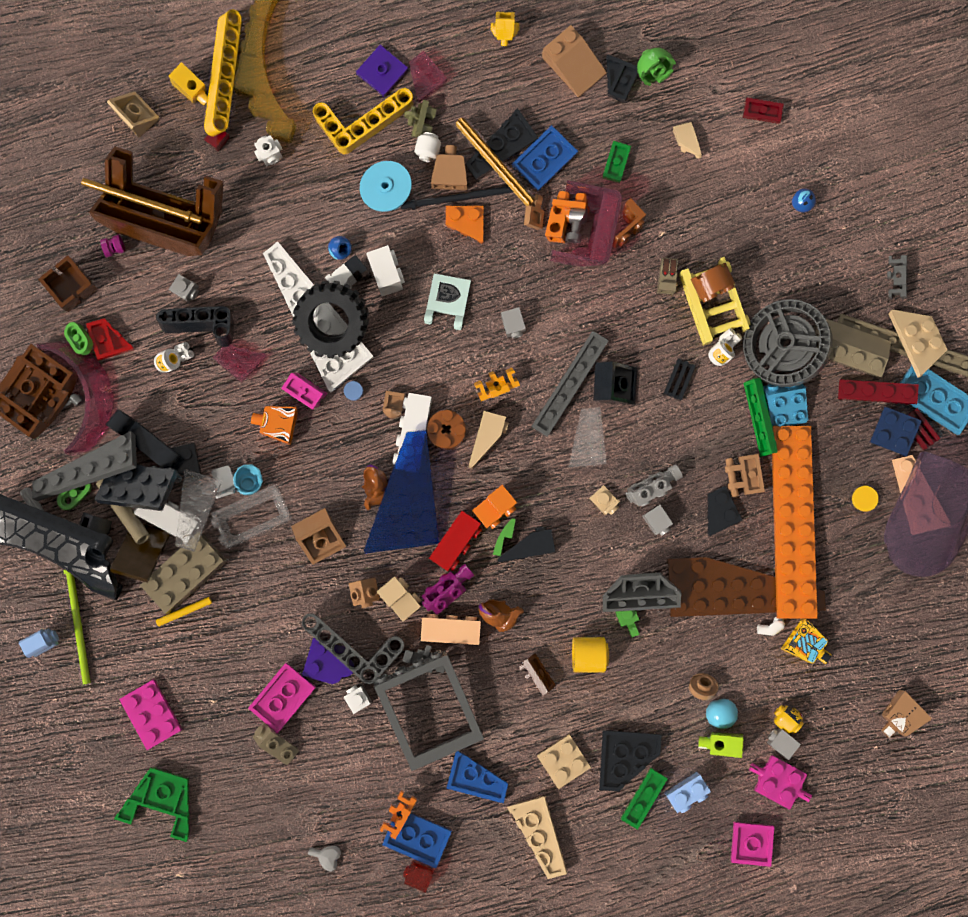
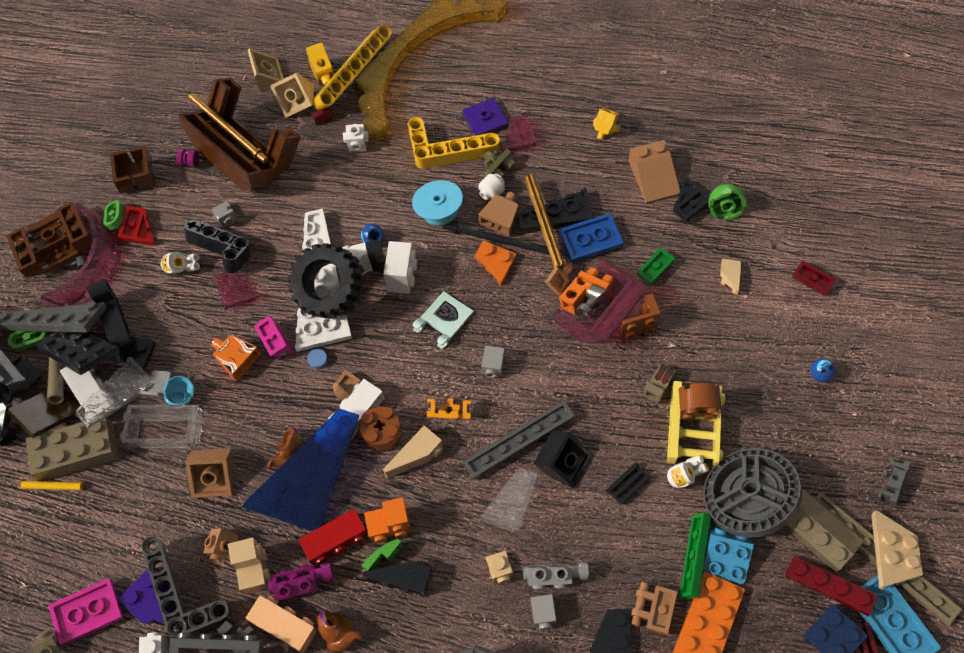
camera: 25 degrees right, 20 degrees down
(182, 131) = (293, 94): none -> tan slope

